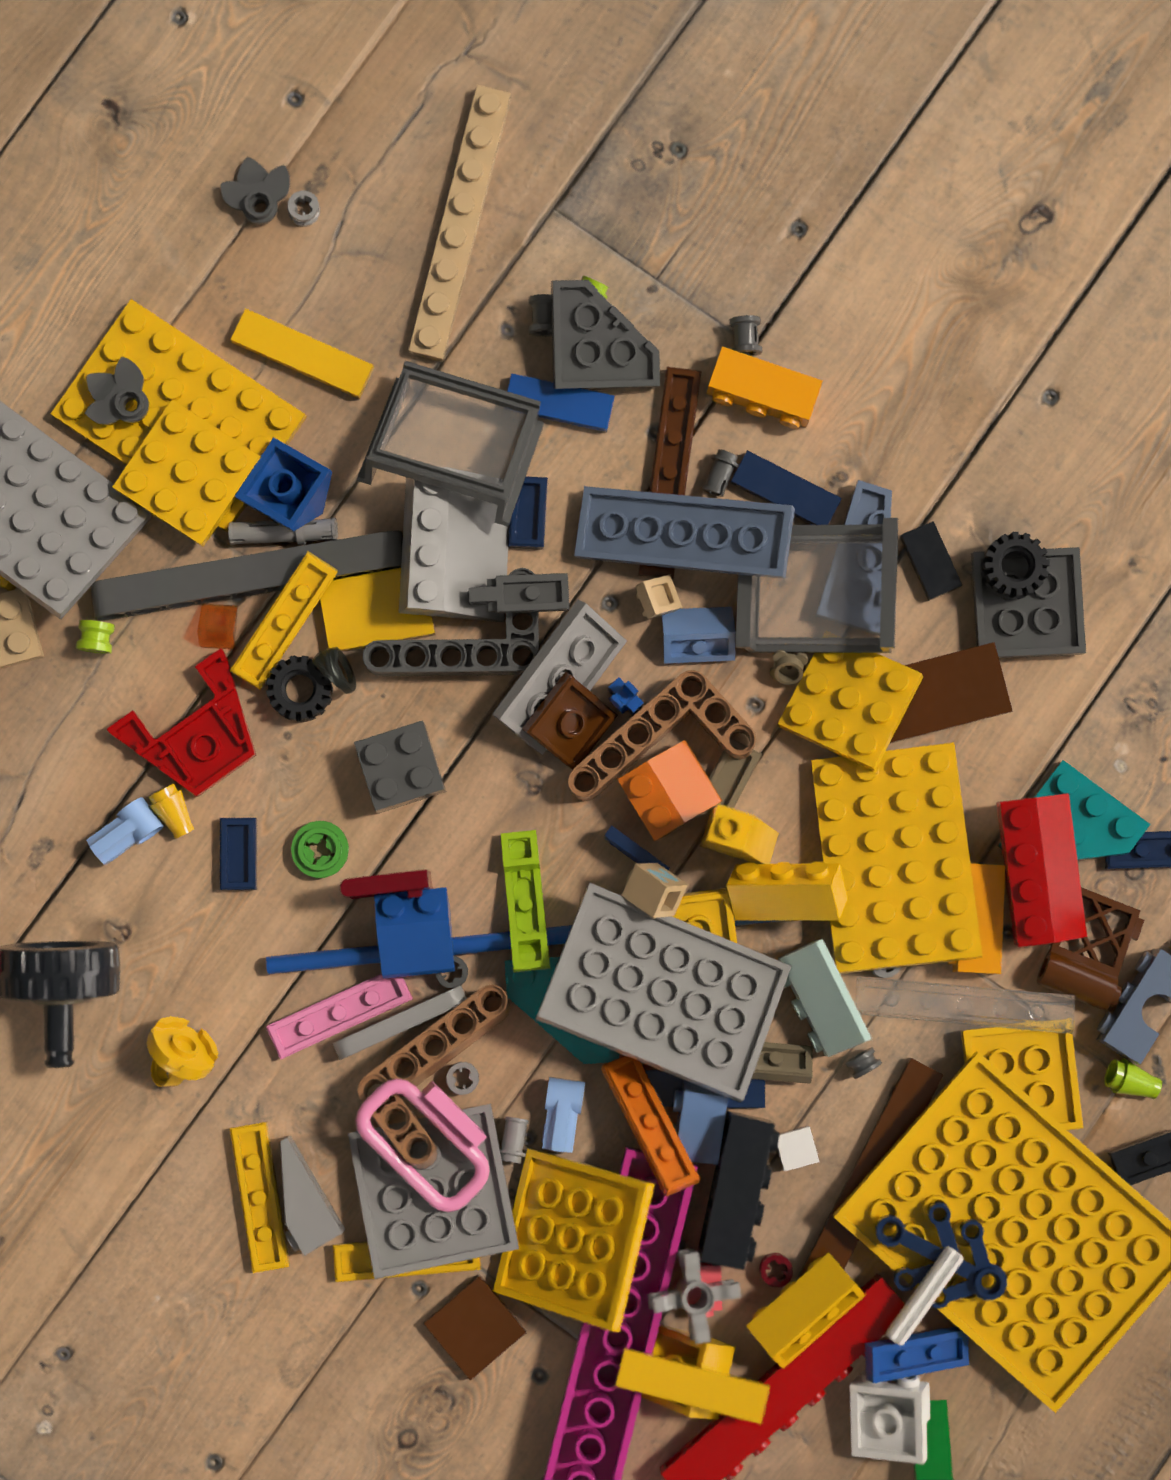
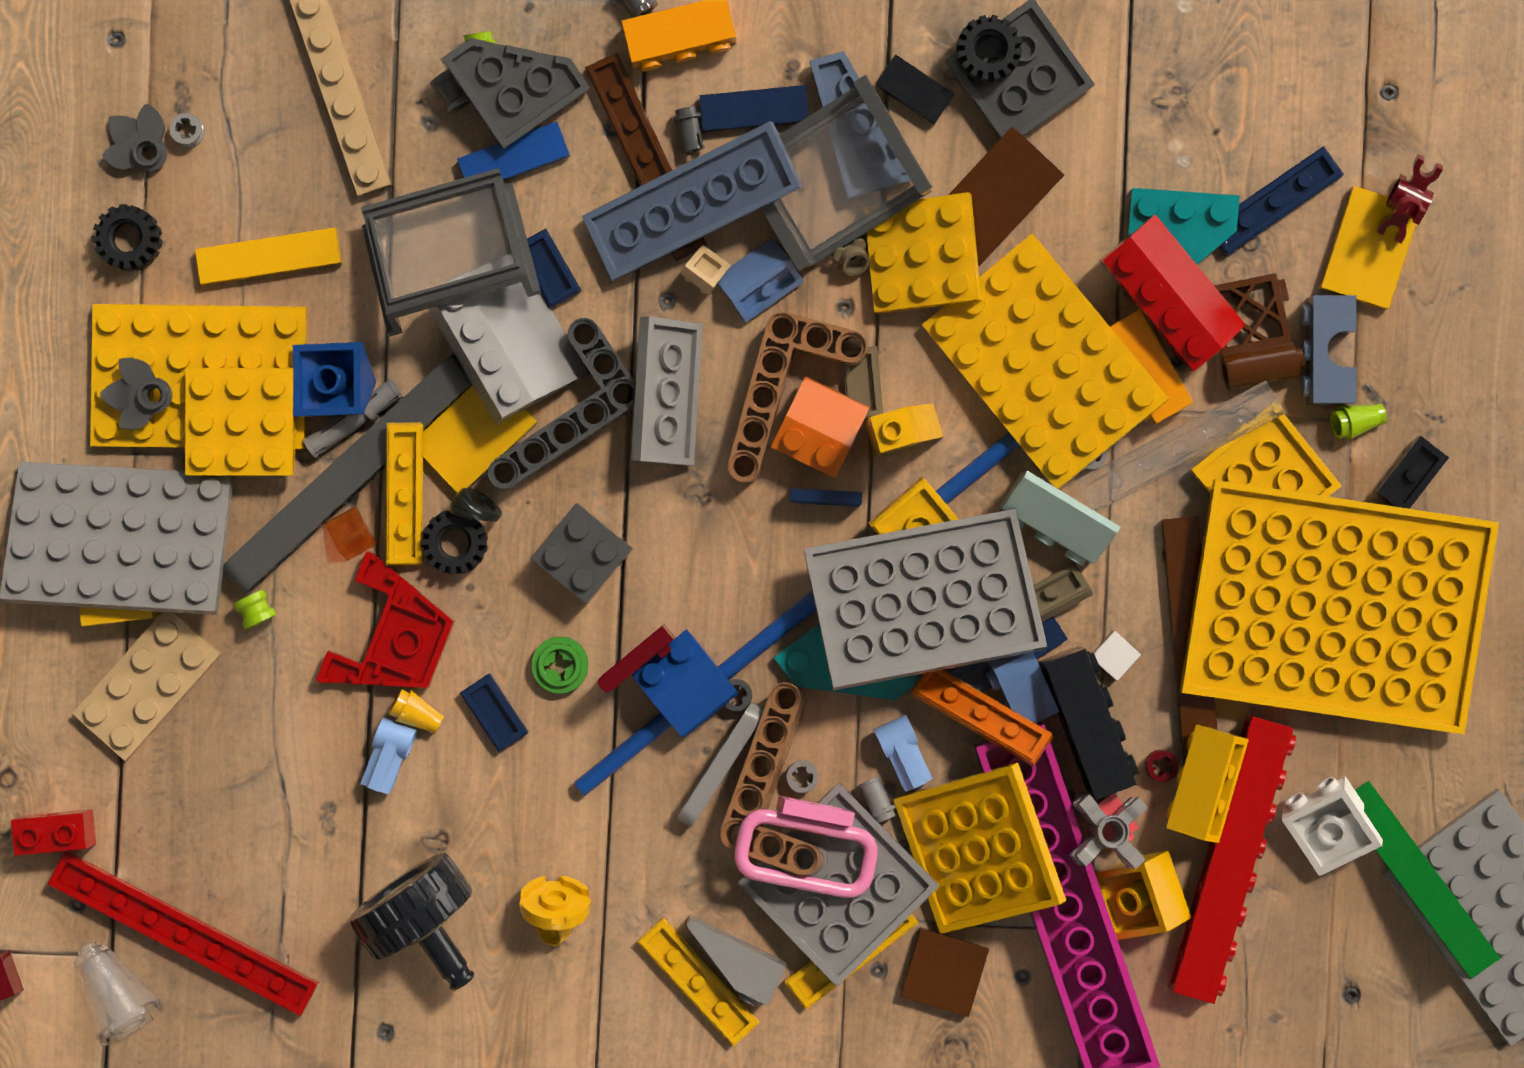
camera: 25 degrees left, 5 degrees up
(192, 243) = (106, 237): none -> black tyre
(337, 1014) = (664, 791): bright pink tile -> none
(523, 593) = (591, 341): dark grey hinge -> none
(525, 901) = (759, 597): lime slope -> none
(569, 721) = (699, 423): reddish brown tile -> none
(624, 697) = (731, 373): blue plate -> none
(654, 890) = (861, 519): tan brick -> none
(692, 1385) = (1154, 904): yellow tile -> none
(787, 891) = (972, 449): yellow brick -> none
(863, 1063) = (1126, 549): dark grey bush -> none
(919, 1355) = (1320, 760): blue plate -> none
(924, 1295) = (1297, 709): white axle -> none
(925, 1248) = (1296, 668): dark blue plant -> none

